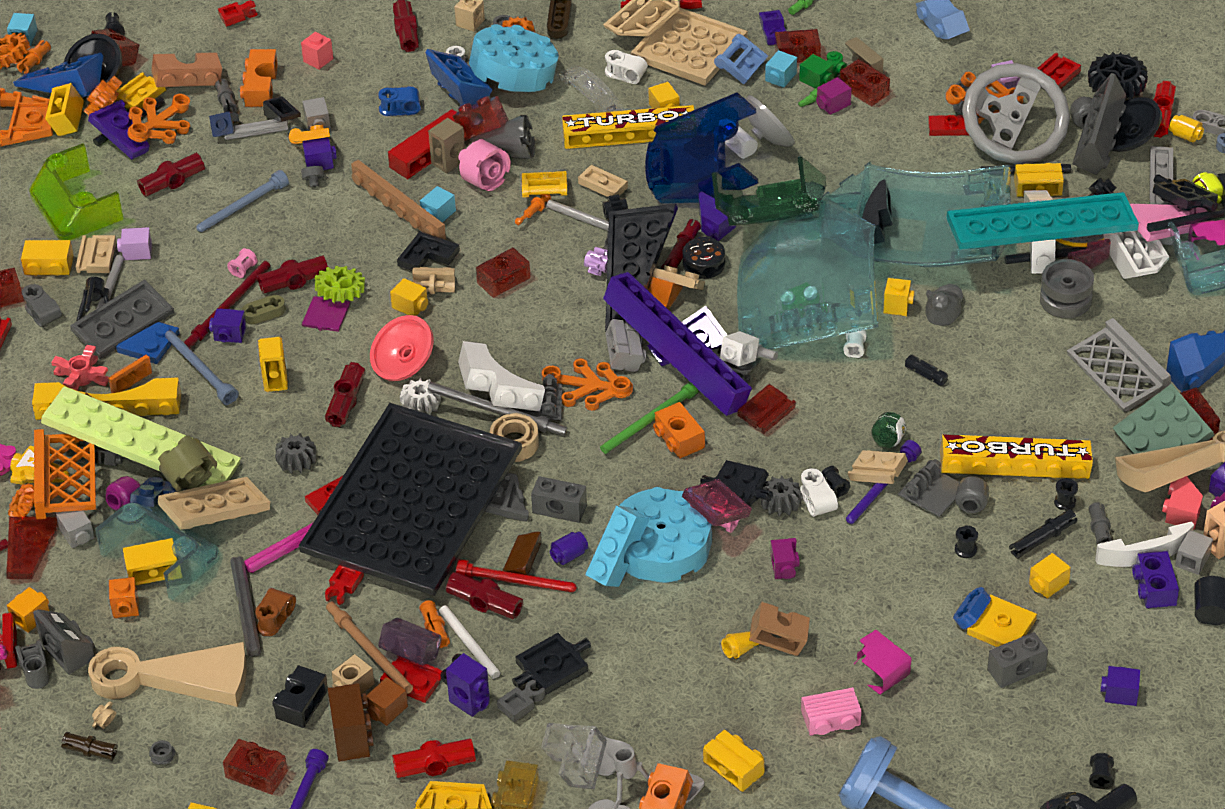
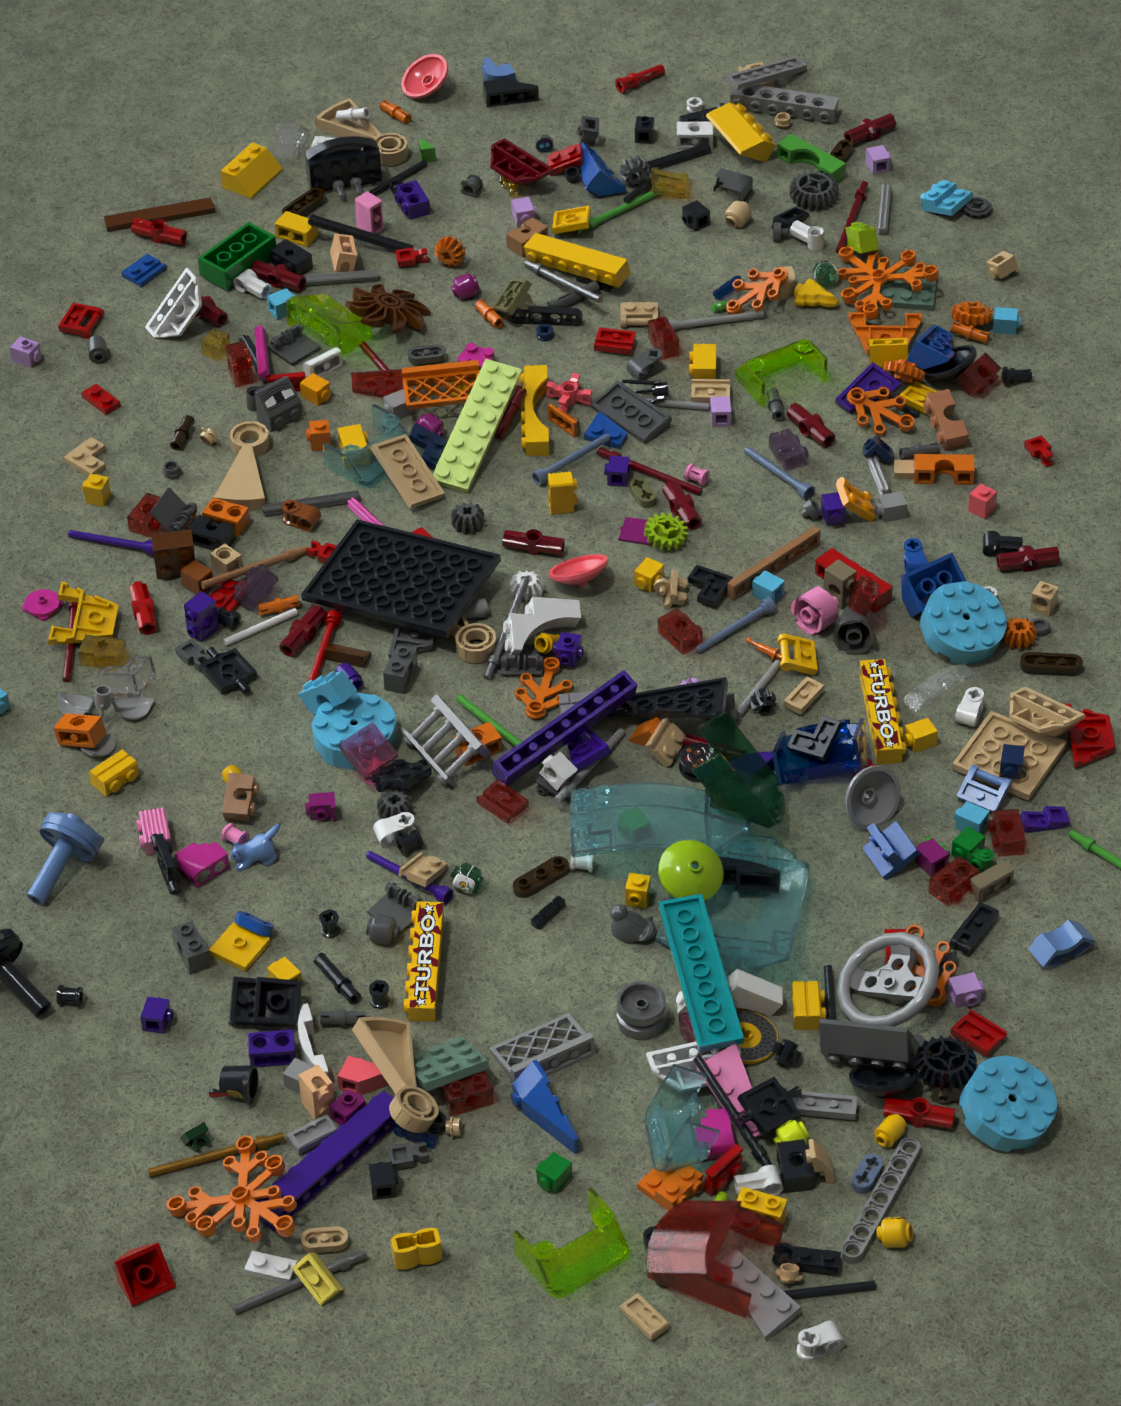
camera: 90 degrees right, 0 degrees up
(134, 202) = (775, 404): none -> dark grey pin
(187, 464) = (434, 443): olive brick -> none
(211, 191) = (788, 450): none -> clear purple brick
(250, 110) = (903, 468): none -> tan tile
(265, 682) = (229, 513): none -> orange brick
(265, 730) = (173, 512): none -> dark grey hinge
(280, 109) = (895, 480): black slope -> none
(381, 44) = (995, 543): none -> black piece
(466, 210) = (766, 607): none -> sand blue piece
(523, 371) = (545, 642): none -> yellow cone
(532, 356) = (568, 649): none -> dark purple brick
(686, 424) = (464, 734): none -> light grey fence
(687, 161) = (817, 744): none -> black plate
(713, 32) = (1012, 761): none -> dark blue brick
(830, 119) = (889, 849): none -> bracket
(833, 636) = (232, 834): none -> bright pink bush
(853, 610) = (257, 849): none -> medium blue animal
(874, 378) = (552, 871): none -> dark brown plate
(895, 235) = (681, 879): none -> lime dish
(898, 684) = (166, 863): none -> black plate
(923, 73) = (974, 928): none -> black plate
(1097, 586) = (264, 1002): none -> black slope
(1156, 42) = (1008, 1103): none -> medium azure piece

